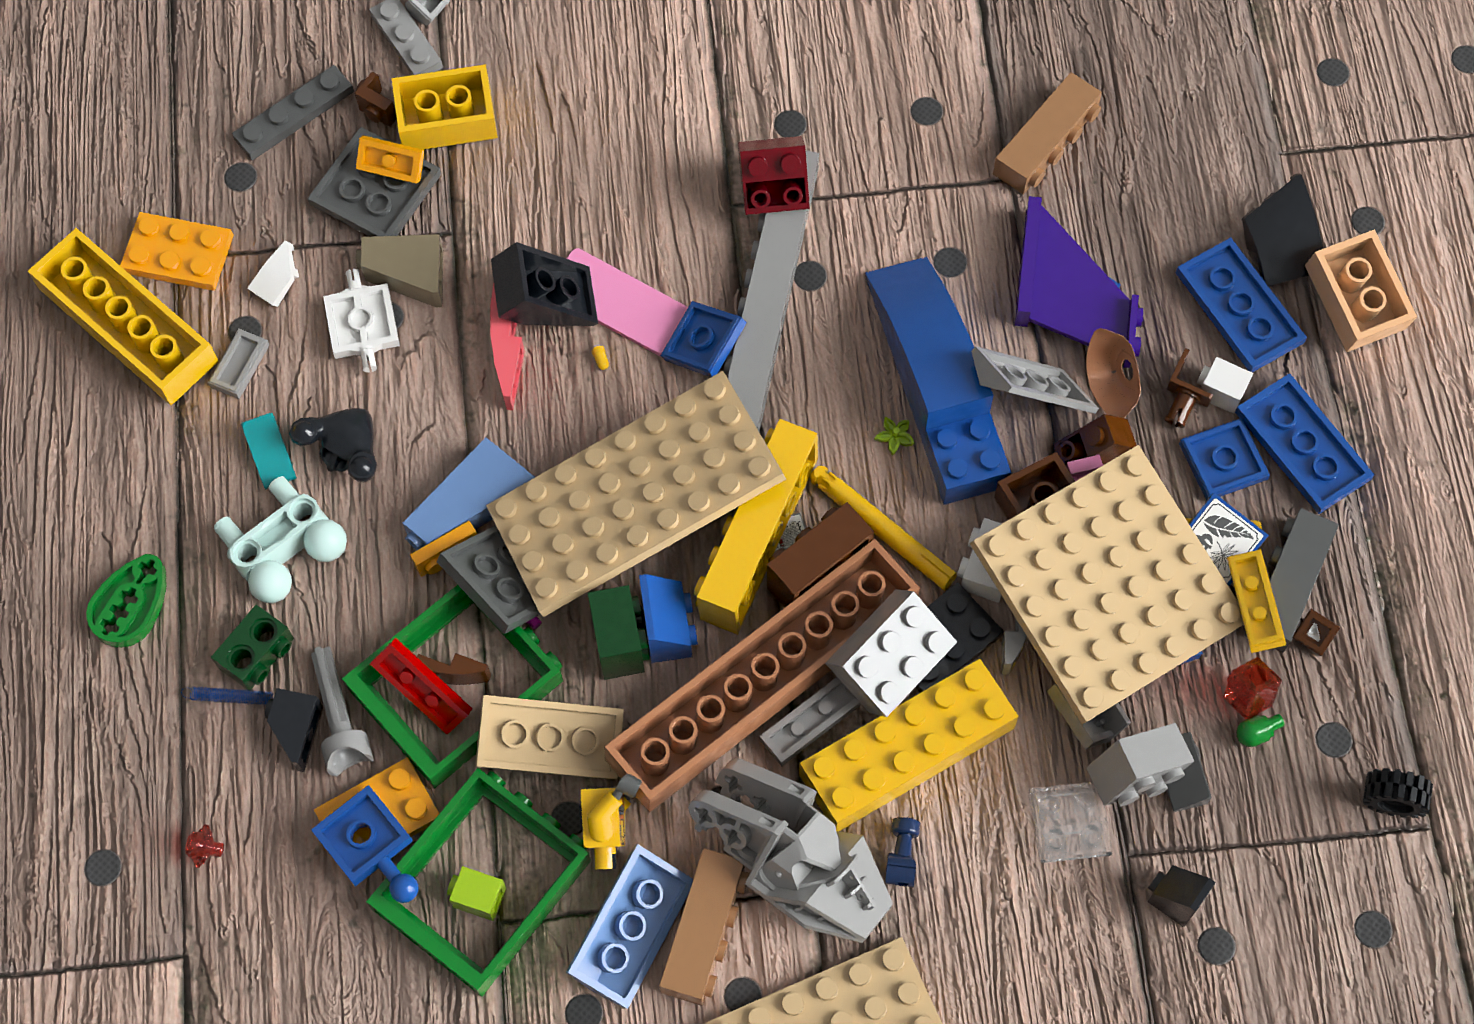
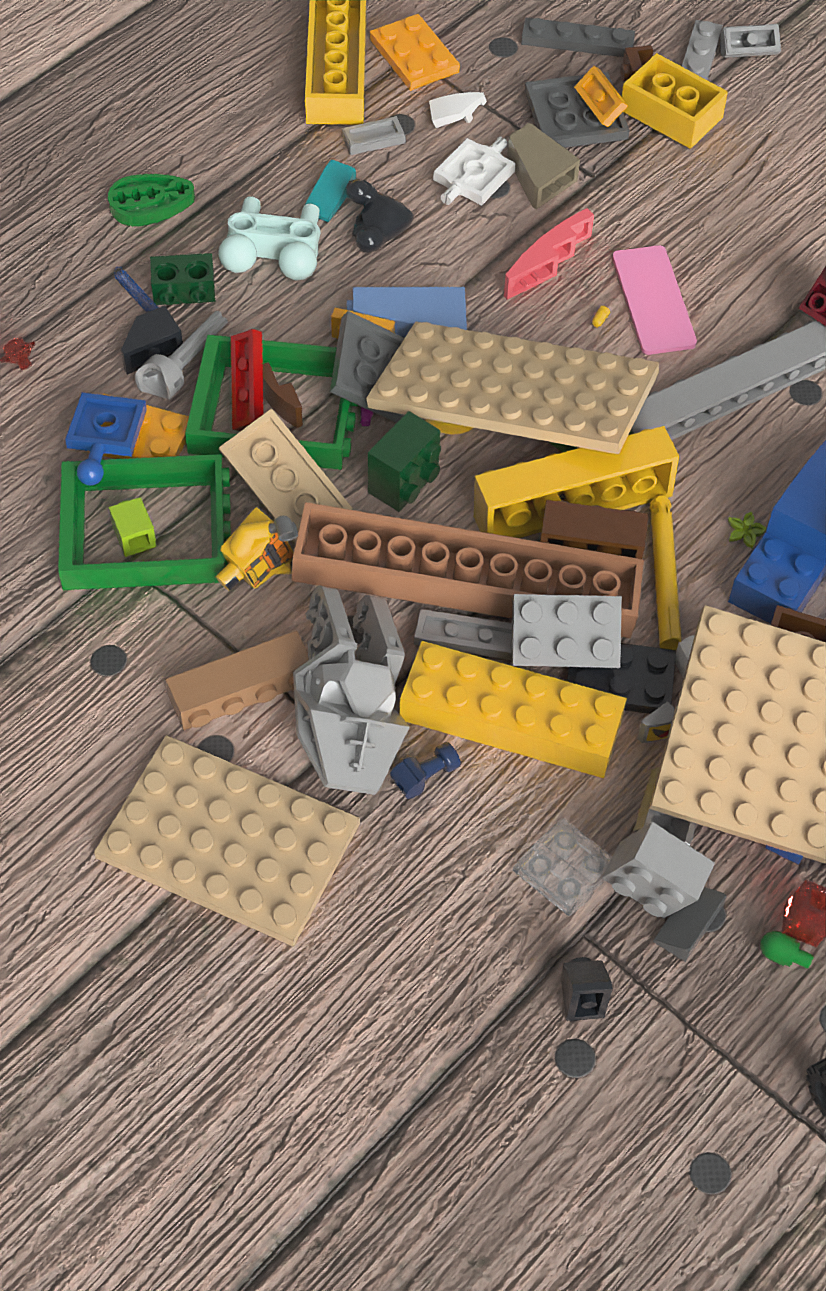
camera: 45 degrees right, 10 degrees down
(542, 288) = (607, 238): black slope -> none
(630, 927) = (193, 633): medium blue slope -> none
(666, 618) = (444, 482): blue slope -> none
(703, 339) = (681, 356): blue tile -> none

